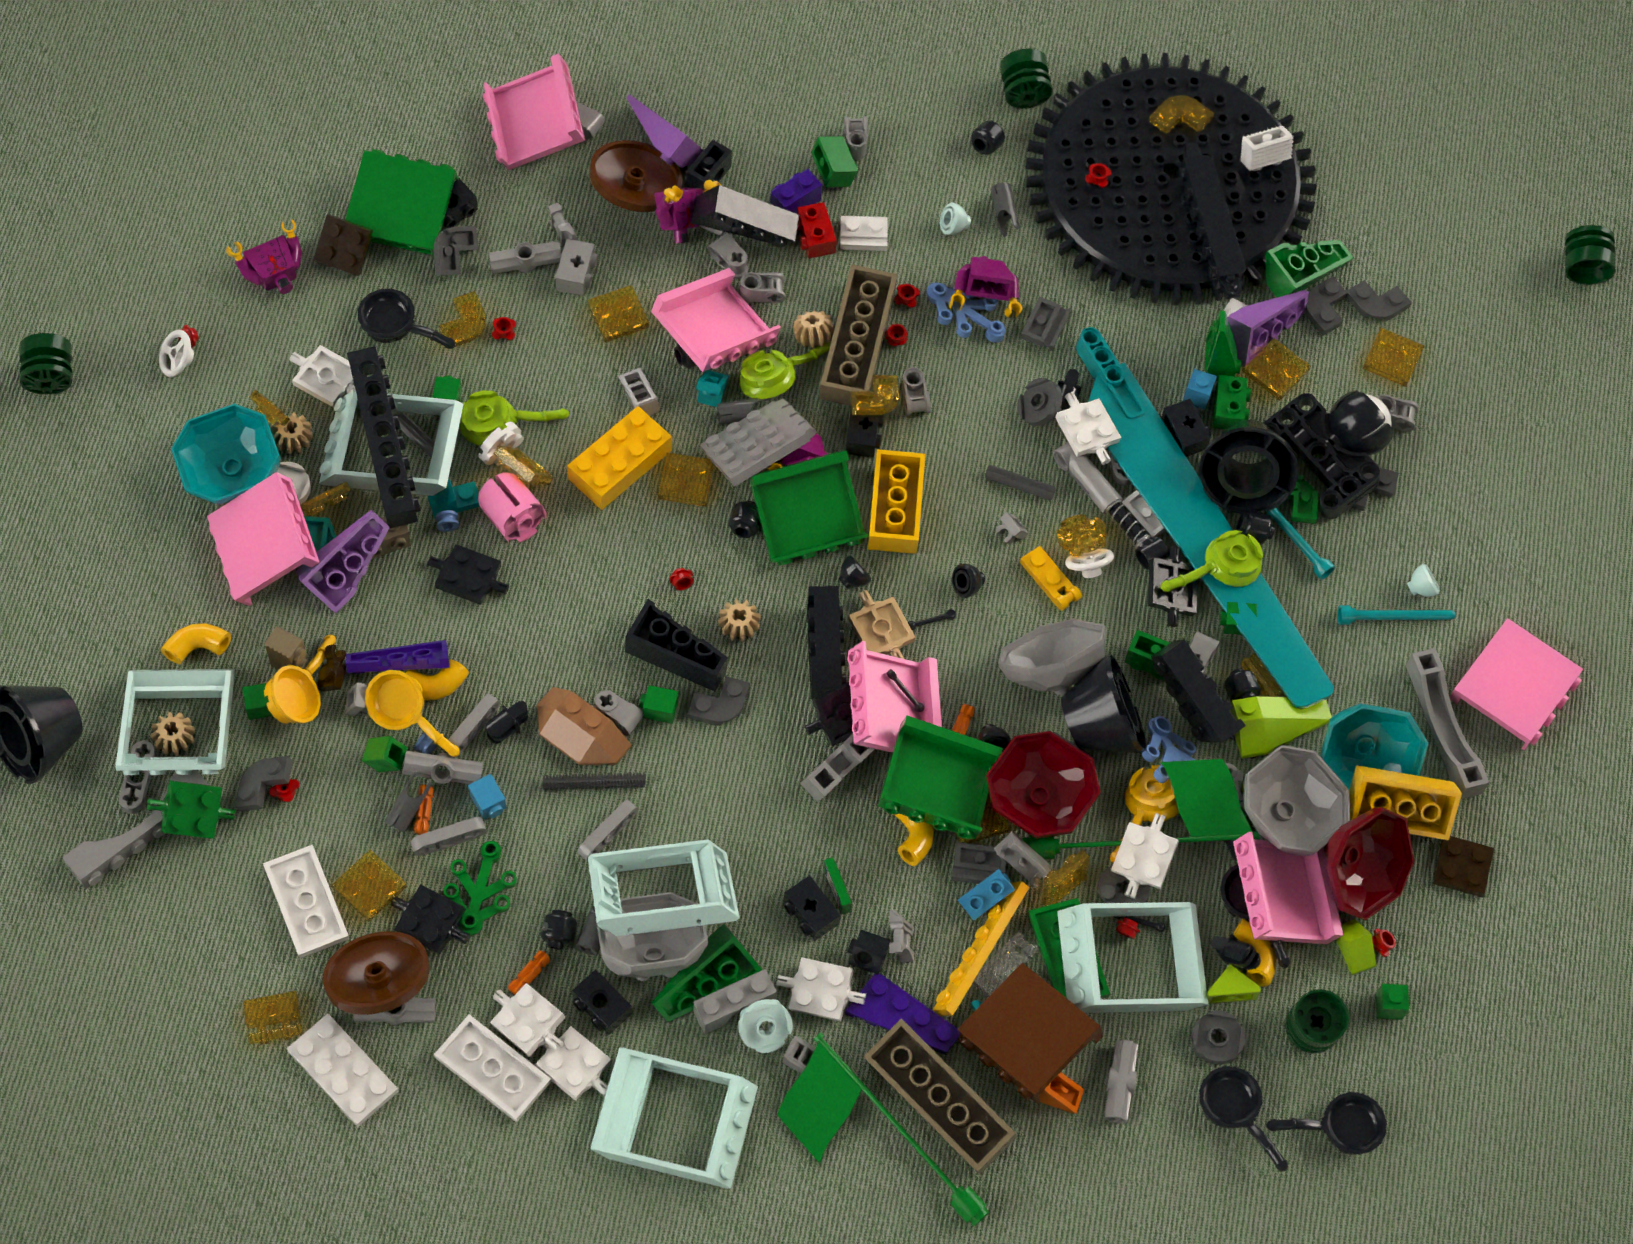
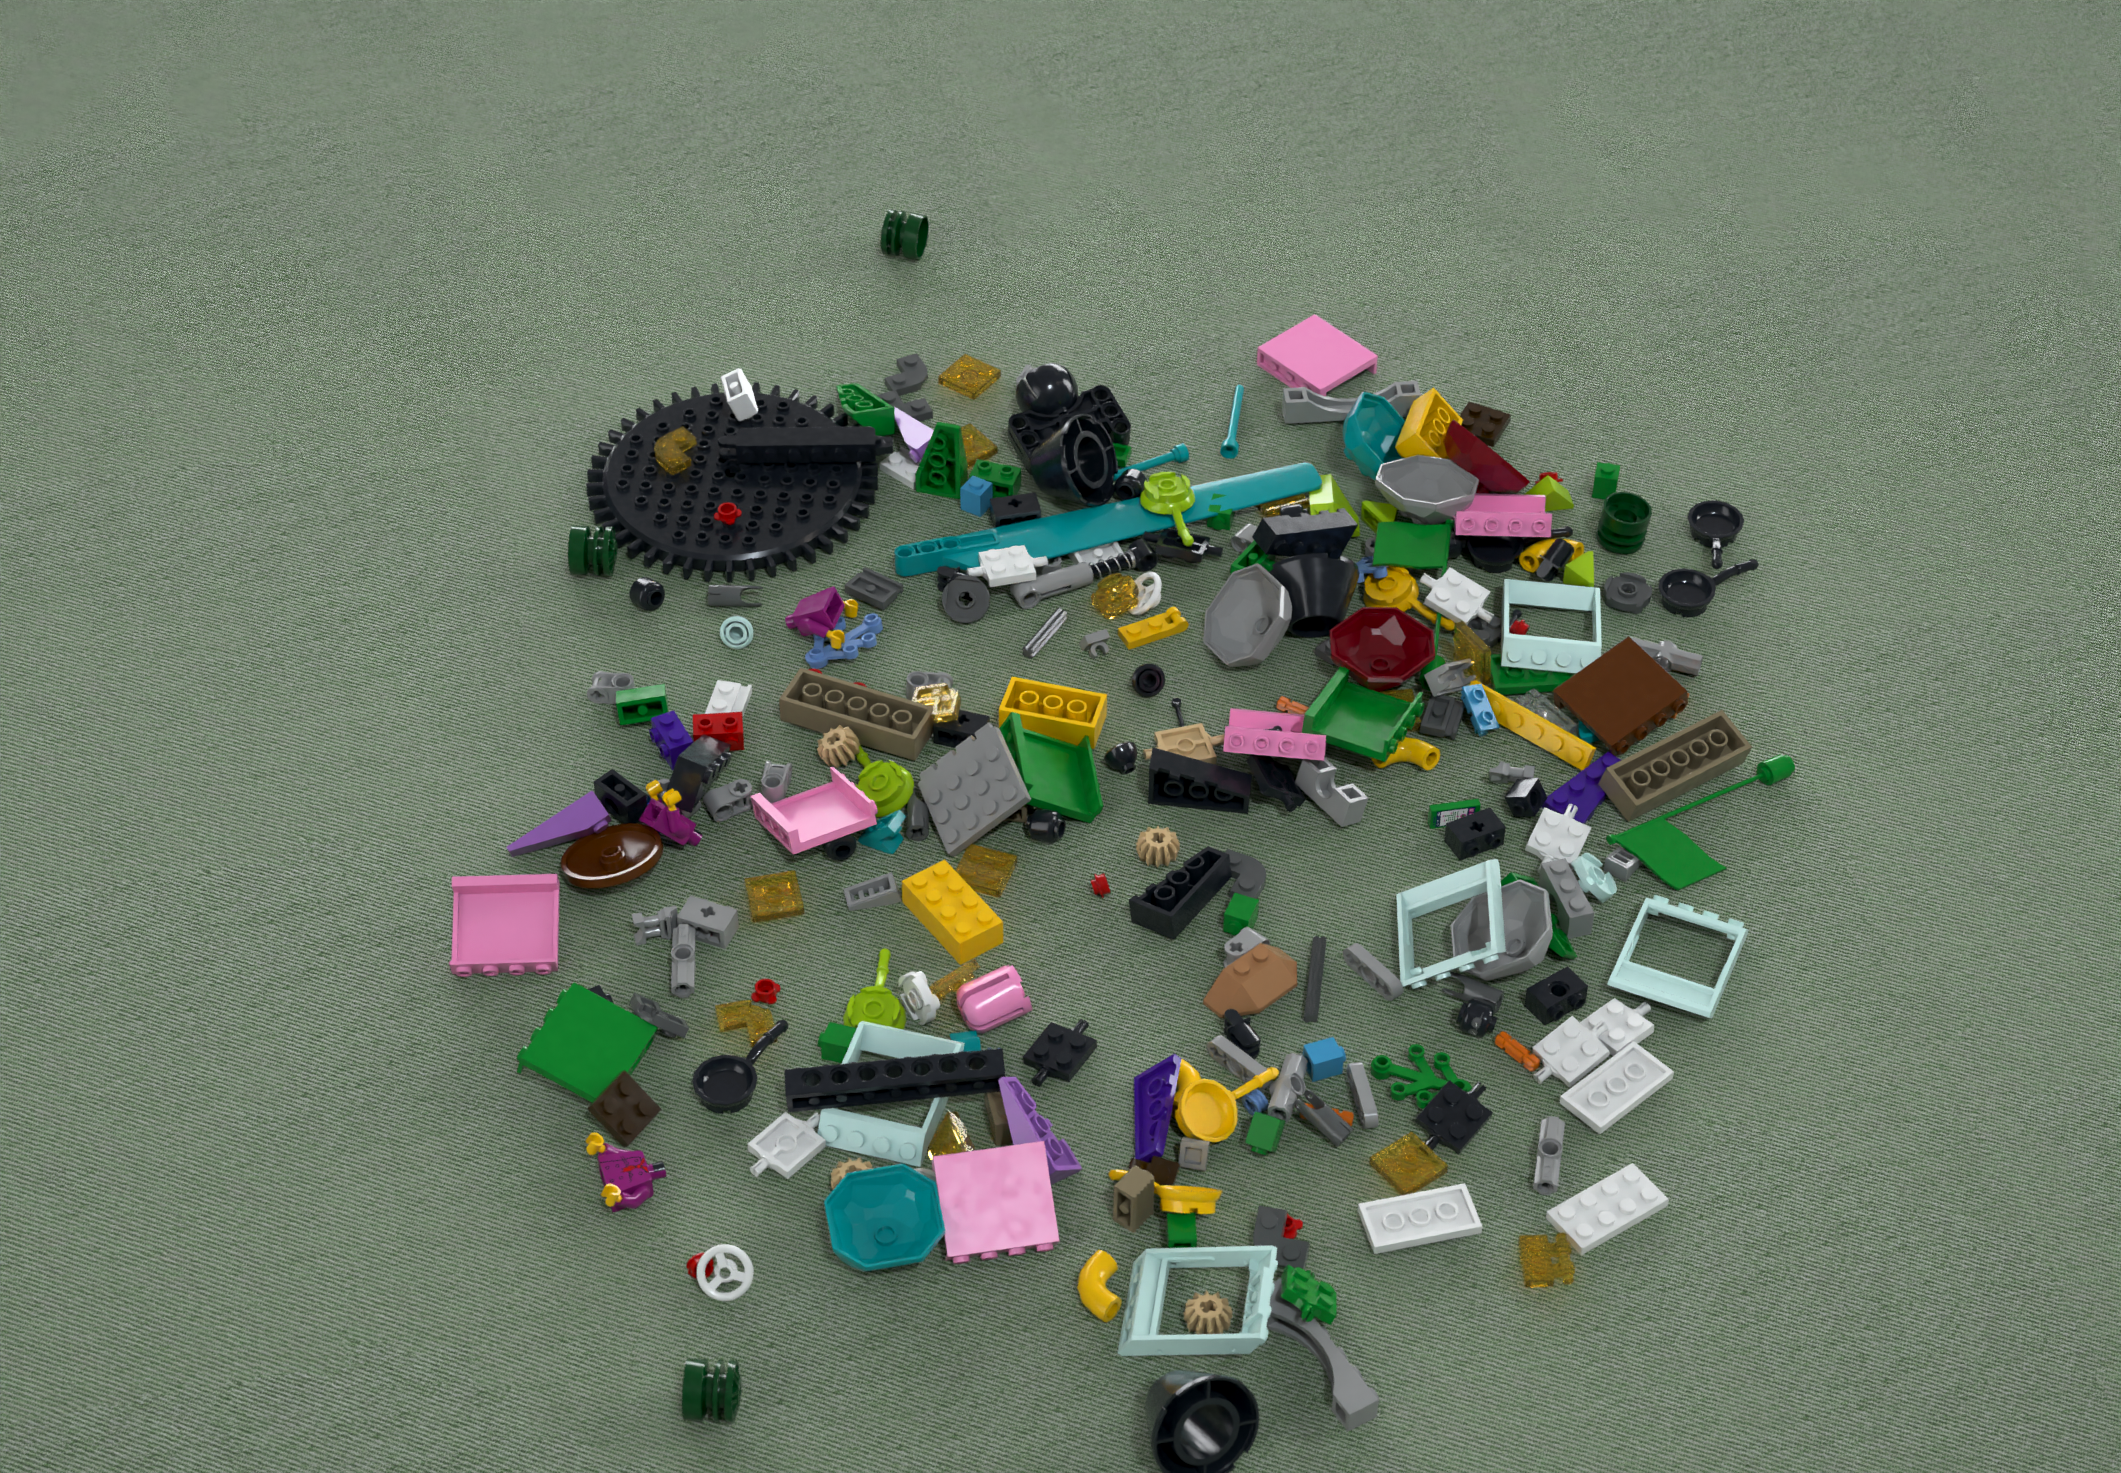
camera: 75 degrees left, 20 degrees down
(140, 788) = (1259, 1365): light grey beam -> none
(269, 409) = (814, 1196): clear yellow plate -> none
(376, 973) = (1514, 1155): reddish brown dish -> none
(995, 736) = (1315, 684): black brick -> none
(1423, 582) = (1208, 393): light aqua brick -> none

